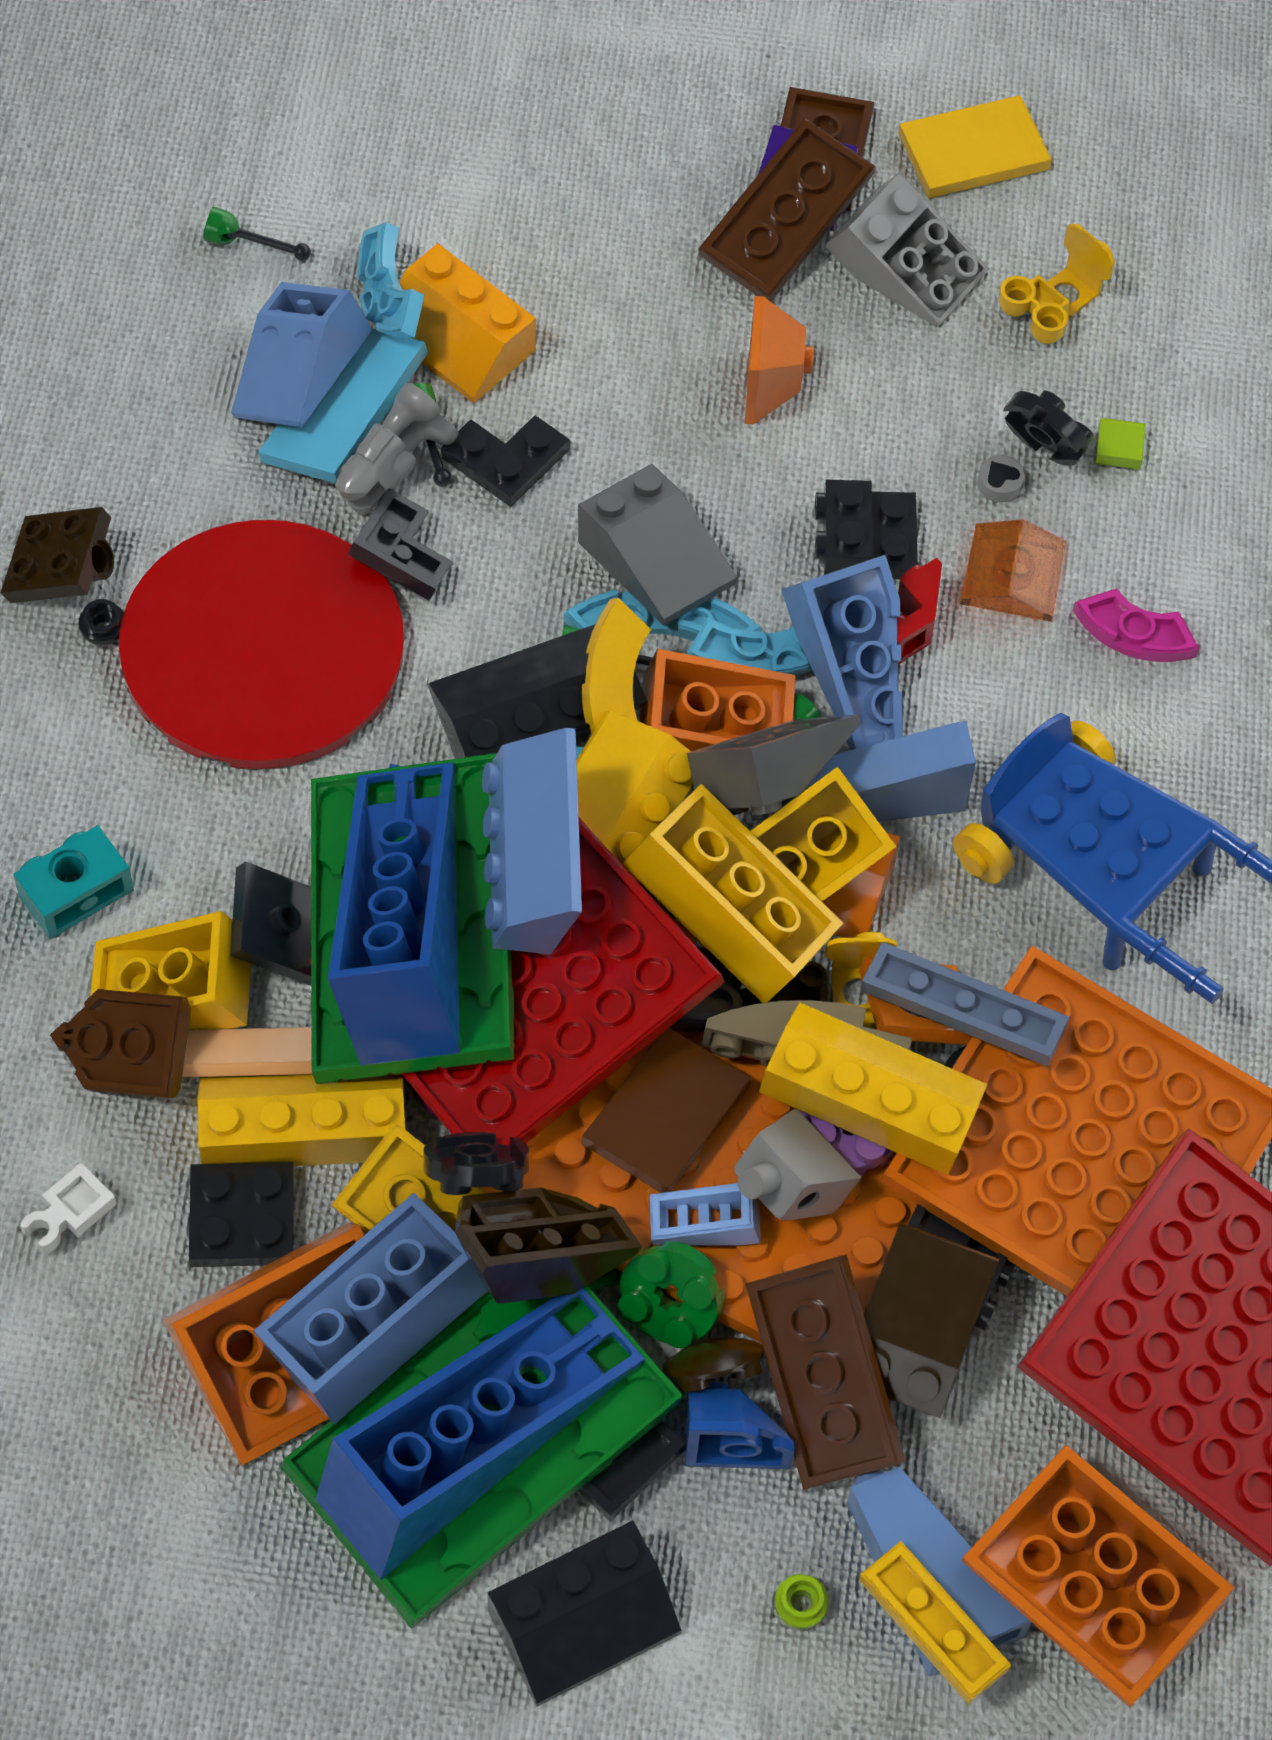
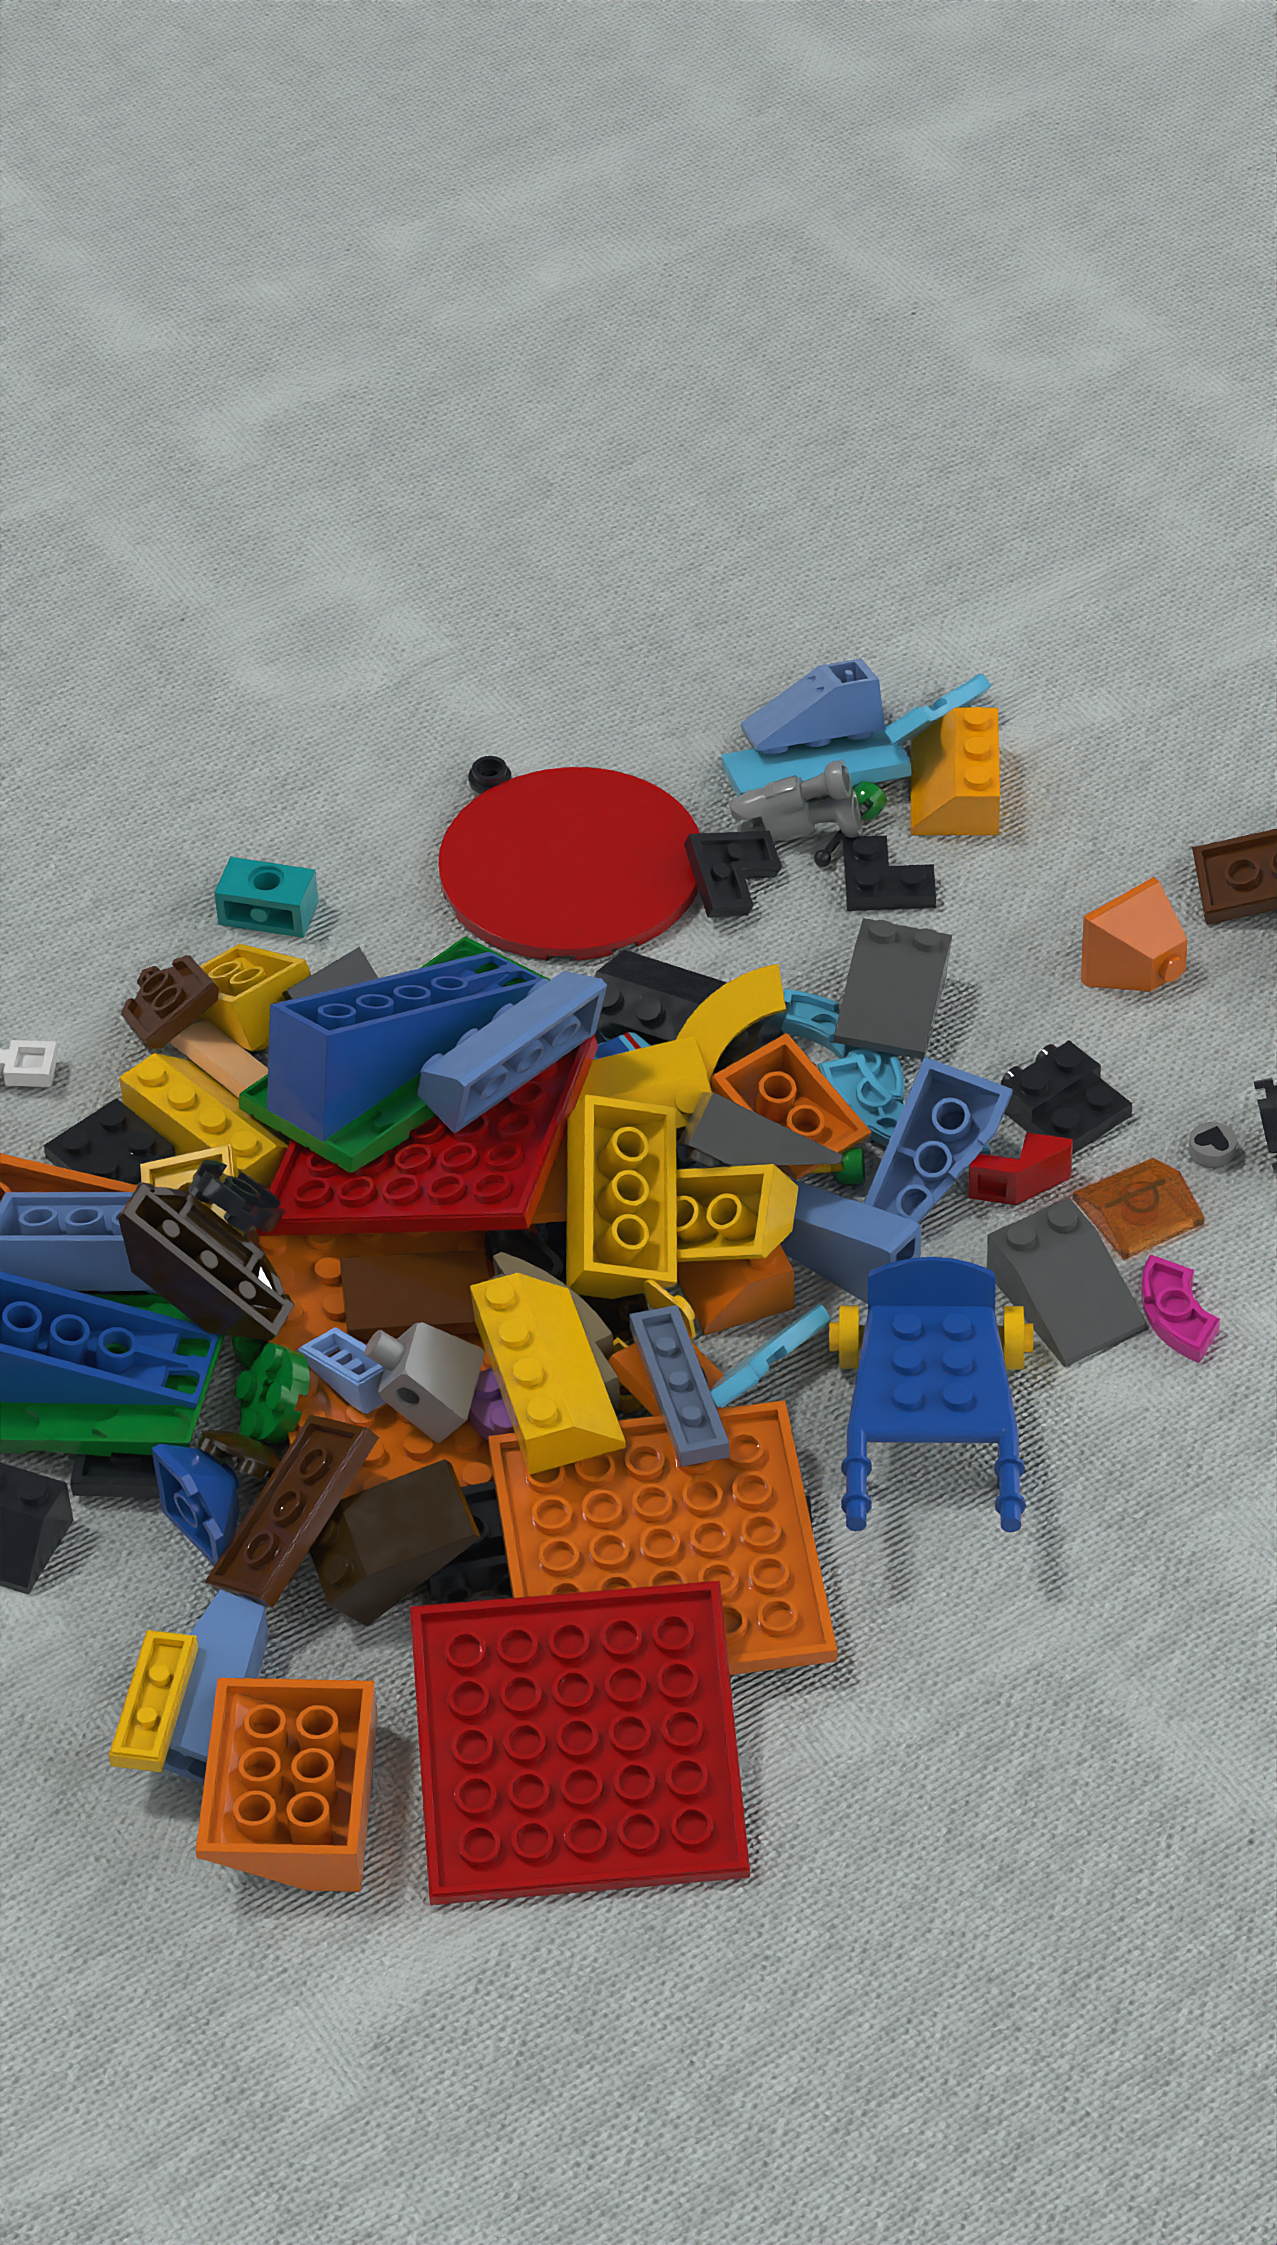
camera: 55 degrees right, 15 degrees down
(59, 555) = (501, 717): dark brown plate -> none
(224, 228) = (885, 614): hinge -> none
(801, 1586) = (114, 1626): lime plate -> none
(945, 925) = (757, 1363): none -> medium azure tile
(1054, 669) = (1064, 1282): none -> dark grey slope

